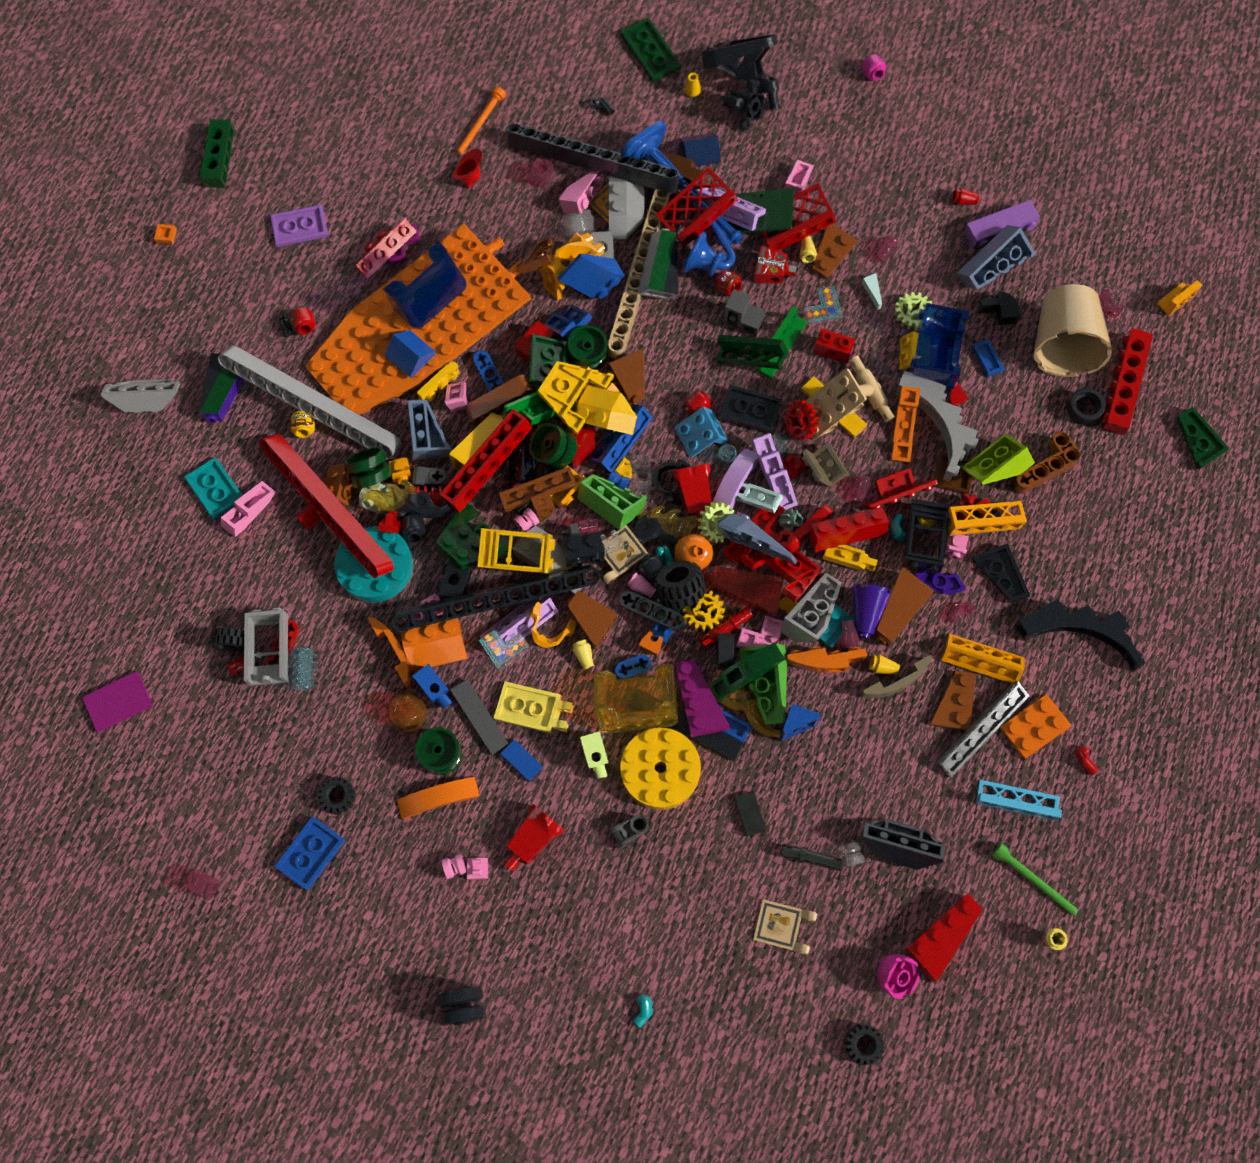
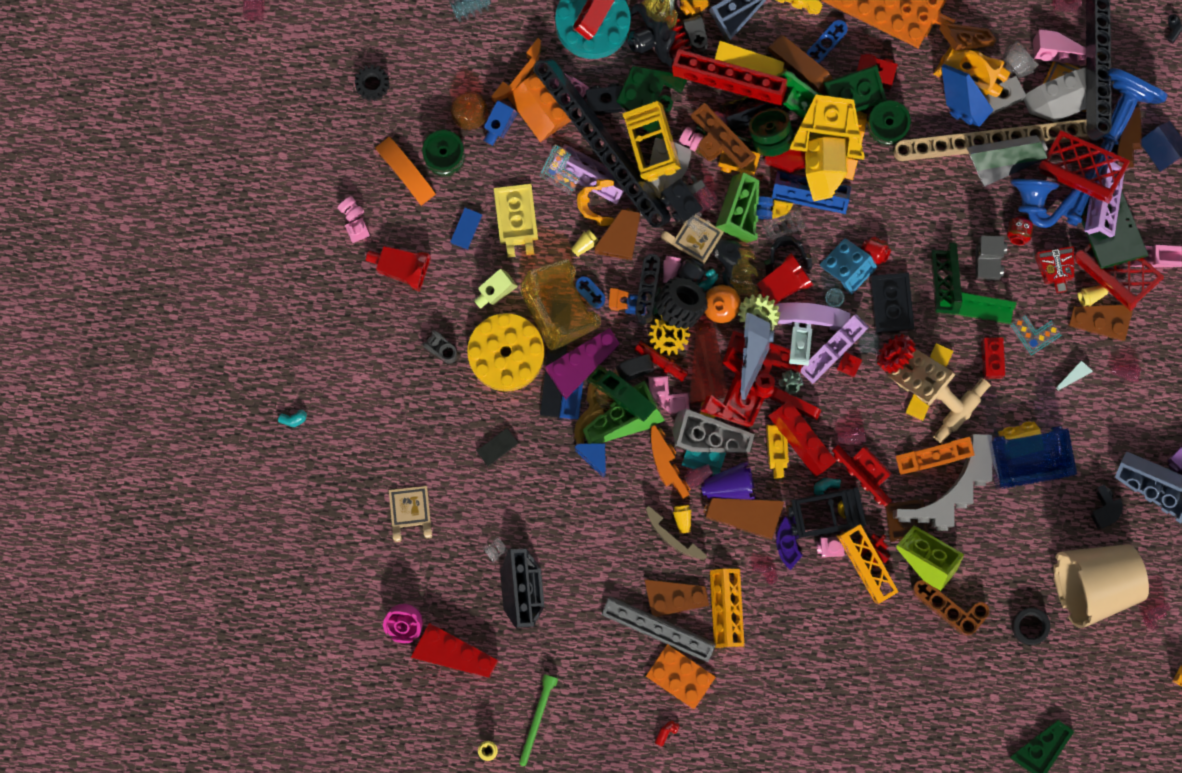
camera: 70 degrees right, 10 degrees up
(310, 853) = (314, 83): blue plate -> none
(390, 523) = (634, 18): red tile -> none
(456, 396) = (789, 21): bright pink slope -> none
(461, 1008) = (234, 265): black wheel -> none
(479, 717) = (490, 175): dark grey tile -> none
(568, 320) = (909, 93): blue slope -> none
(630, 376) = (877, 176): dark orange slope -> none
(816, 858) = (479, 514): pearl dark grey pin -> none
(825, 465) = (859, 392): dark tan bracket -> none
(875, 1037) = (324, 615): black tyre -> none
(910, 304) = (1069, 415): yellowish green gear -> none
(957, 396) = (990, 497): red tile -> none
(988, 358) = (1046, 514): blue tile -> none
(1003, 572) = (821, 600): black wing -> none
(1017, 804) = (597, 682): medium azure fence -> none
(1085, 620) = (793, 660): black arch -> none
(1141, 342) = (1126, 660): red brick -> none

